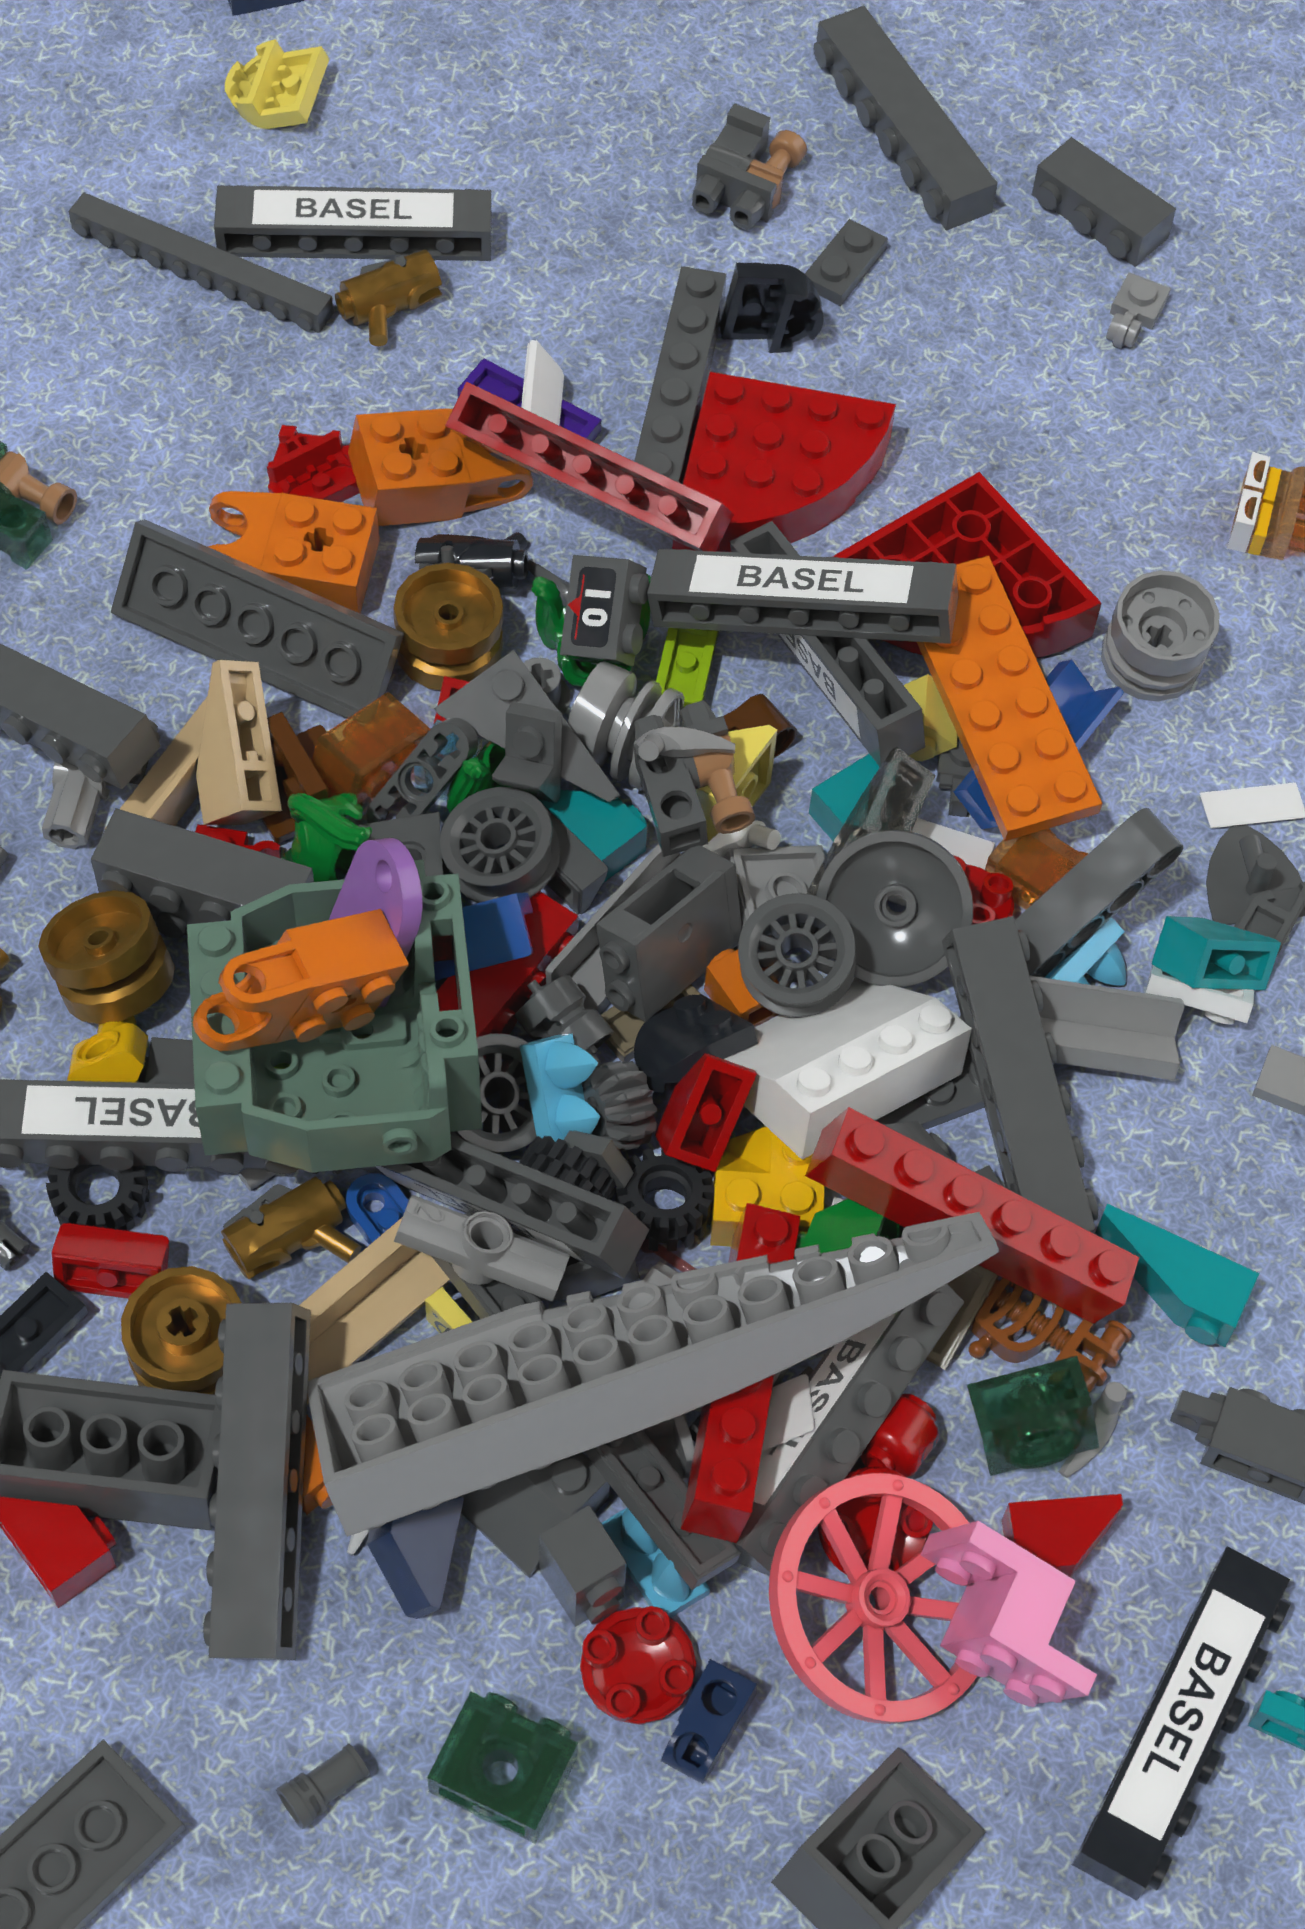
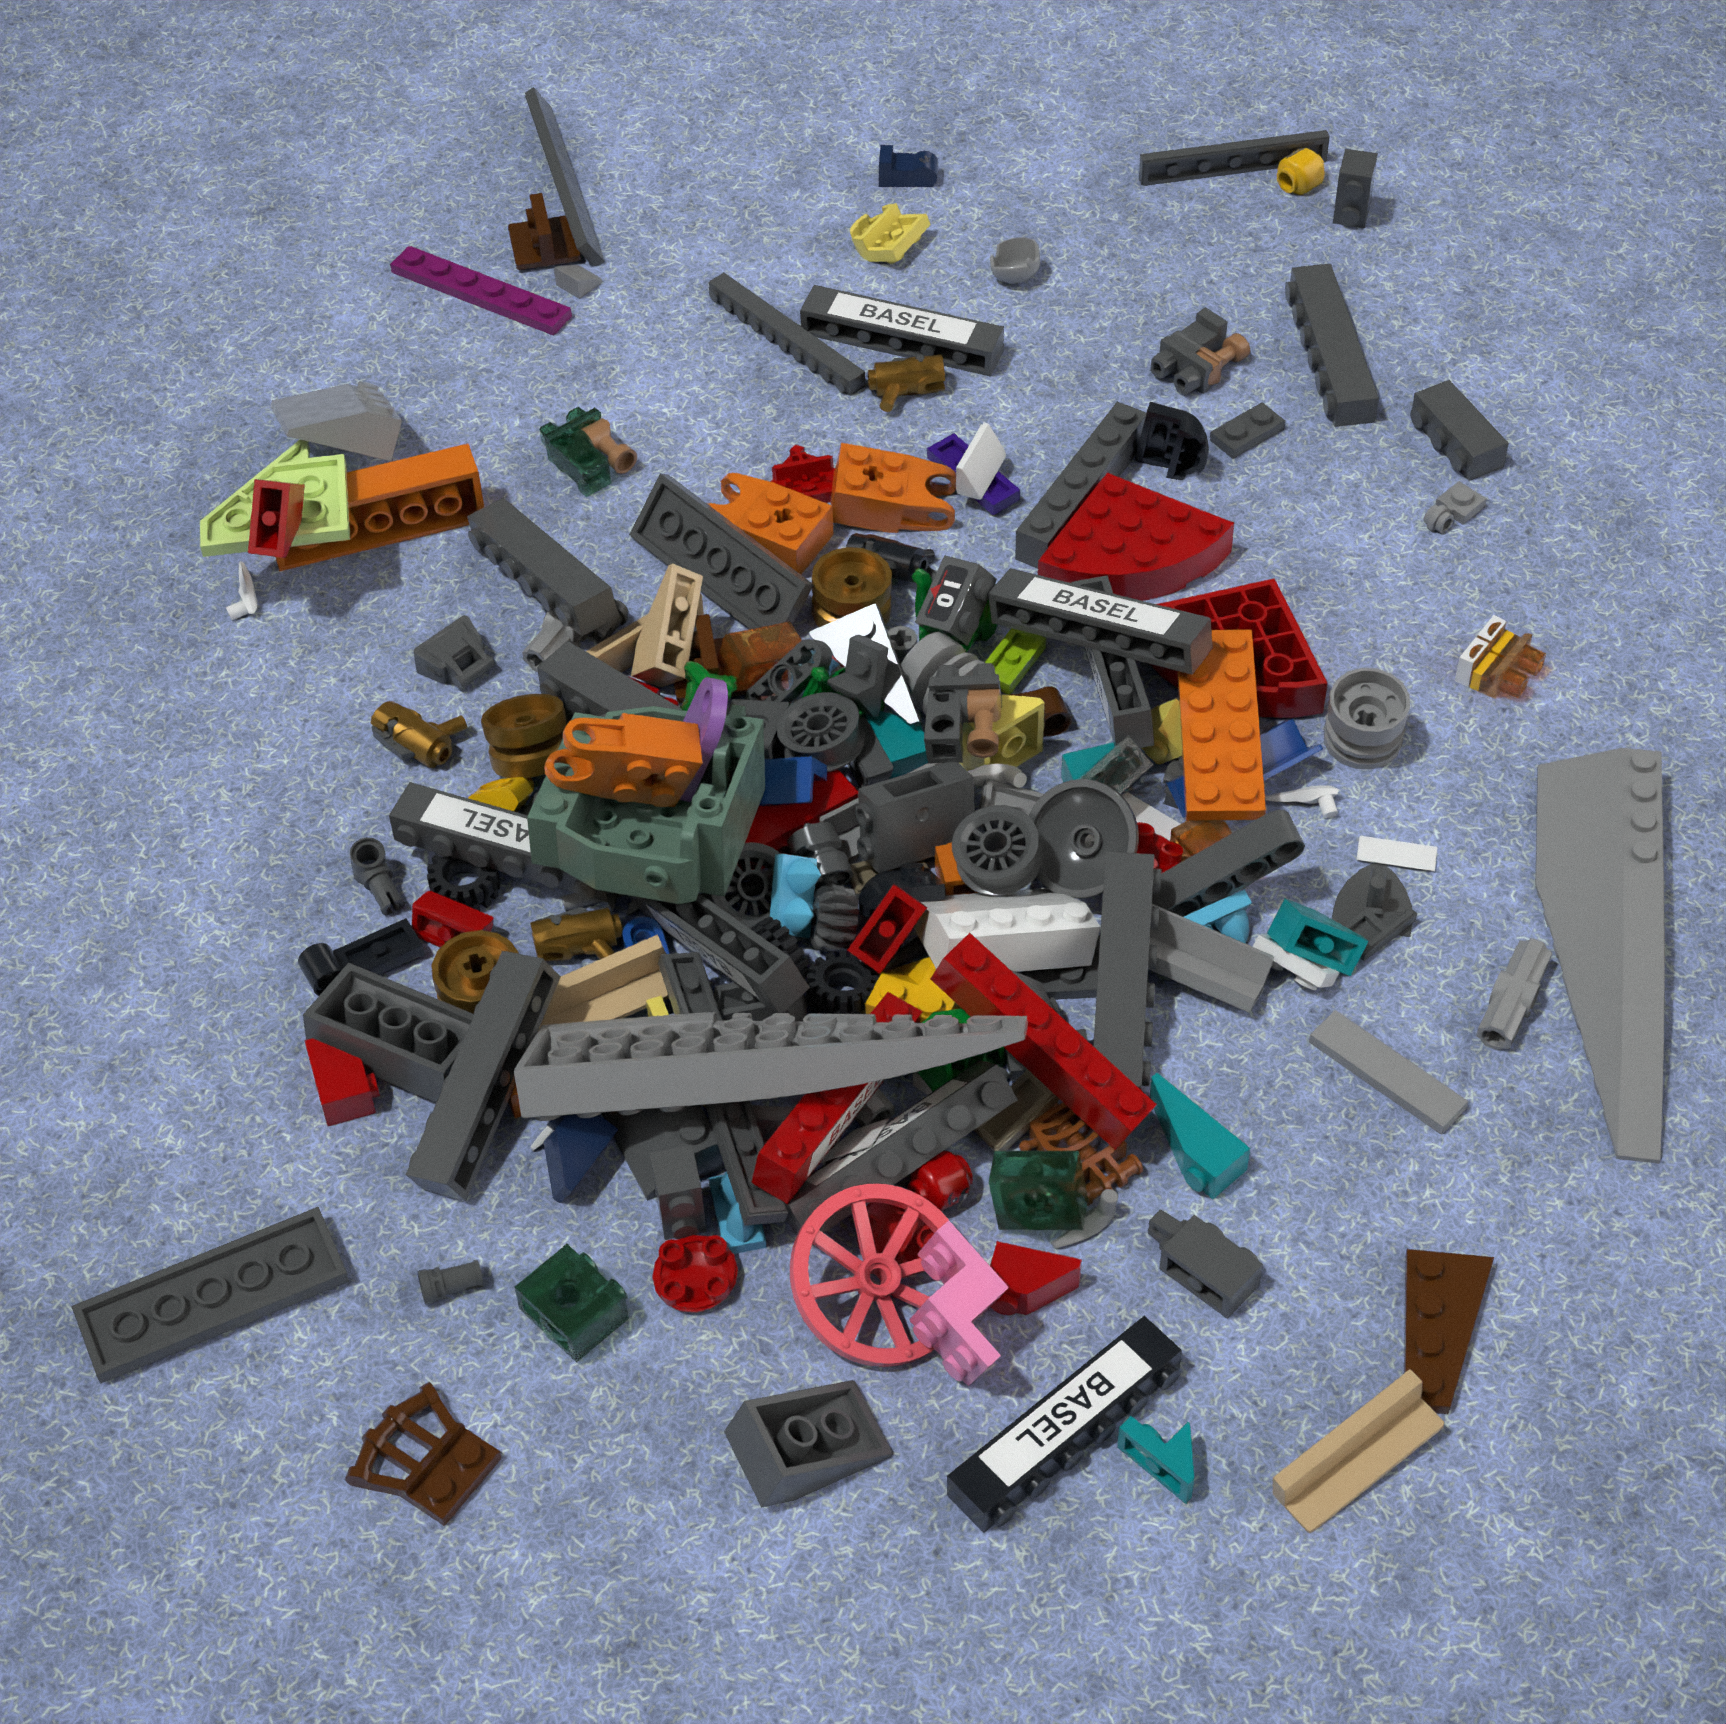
camera: 25 degrees right, 10 degrees down
(460, 1242) = (691, 968): light grey piece -> none
(462, 86) = (1016, 260): none -> light grey hair
(589, 469) = (985, 509): red brick -> none
(604, 1152) = (806, 940): dark grey tile -> none
(680, 743) = (959, 683): light grey bar -> none
(708, 1721) = (726, 1319): dark blue leg -> none
(1123, 755) = (1310, 795): none -> white bar

